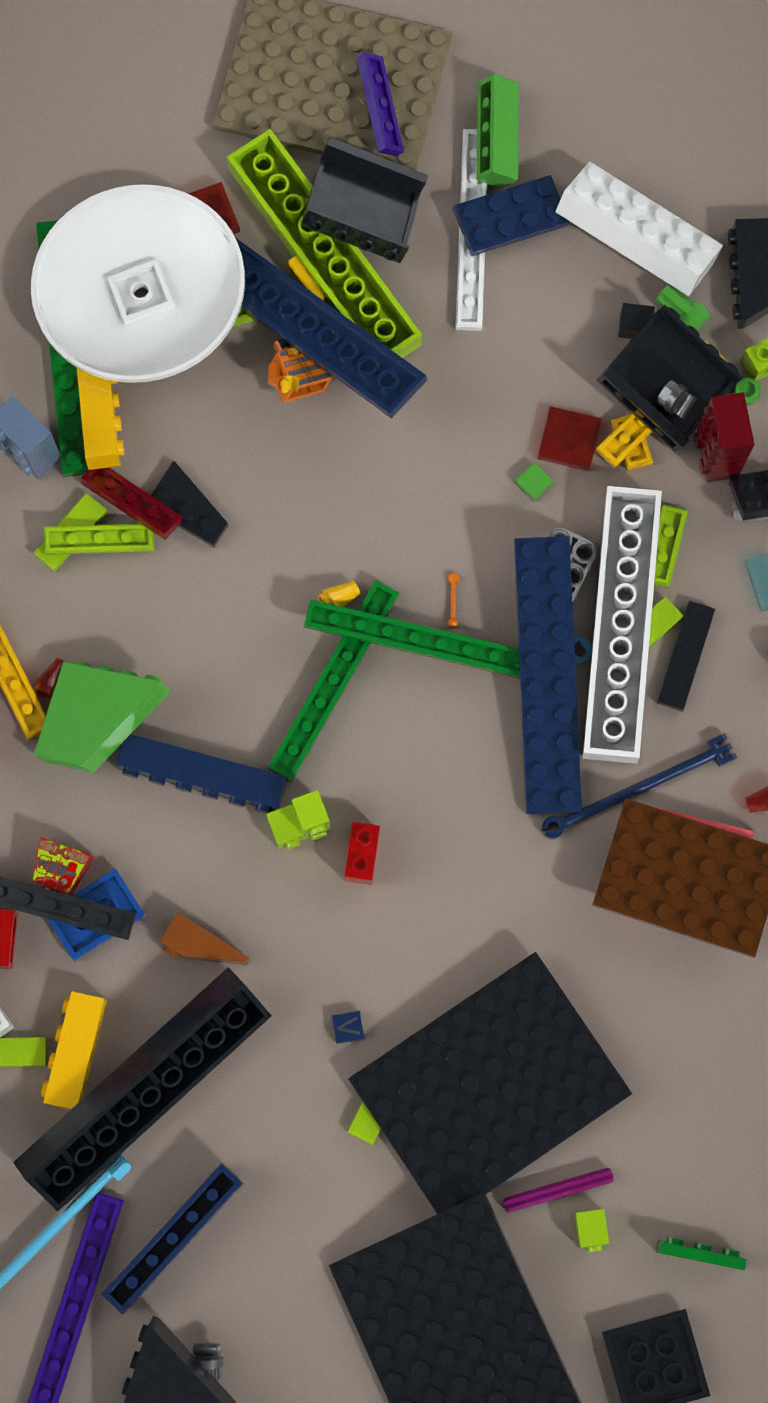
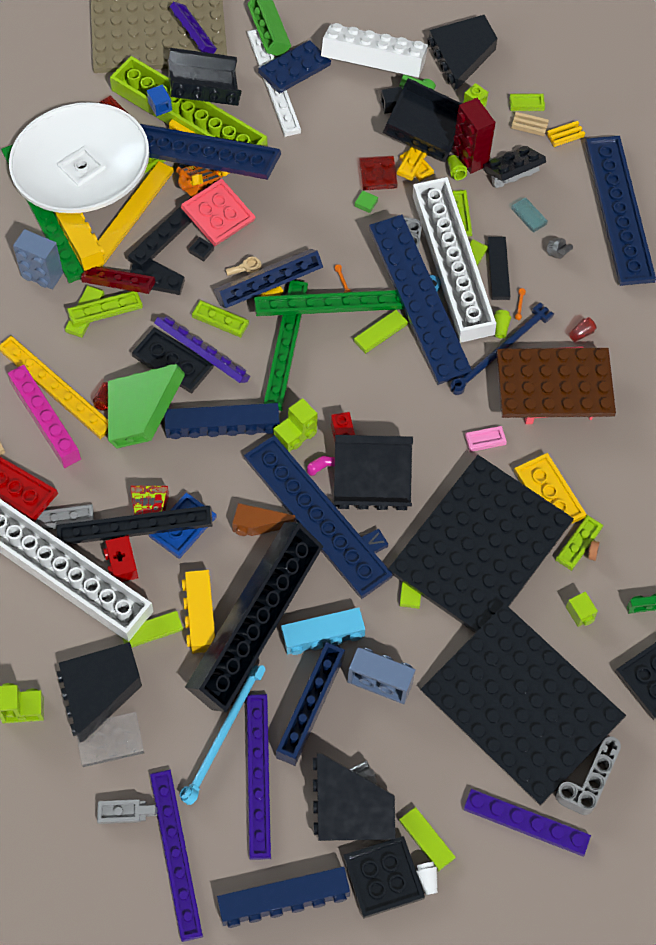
camera: 20 degrees left, 15 degrees down
(166, 652) = (160, 350): none -> black plate
(192, 386) = (134, 209): none -> yellow tile
(212, 651) = (207, 352): none -> dark purple plate
(228, 441) = (159, 238): none -> black plate
(228, 1137) = (317, 631): none -> medium azure brick
(256, 606) = (220, 318): none -> lime tile
(267, 485) = (201, 249): none -> black plate
(280, 1232) = (381, 675): none -> sand blue brick
(282, 225) = (159, 100): none -> blue brick
(282, 963) = (318, 516): none -> dark blue plate
(309, 435) = (218, 212): none -> coral plate
(320, 883) = (320, 463): none -> dark pink arm
(329, 535) = (249, 265): none -> tan plate
(344, 568) = (268, 278): none -> dark blue brick
(379, 929) = (373, 471): none -> black panel
(476, 703) = (380, 331): none -> lime tile
(558, 1190) = (550, 595): magenta axle -> none
(561, 922) = (485, 438): none -> bright pink tile
(618, 1026) = (546, 480): none -> yellow plate
(630, 1126) = (579, 542): none -> lime tile
(643, 1147) = (593, 552): none -> nougat tile
(653, 750) = (502, 320): none -> lime cone
(676, 399) = (435, 129): flat silver piece -> none
(687, 469) = (457, 168): none -> lime cone
(704, 706) = (521, 292): none -> orange hinge

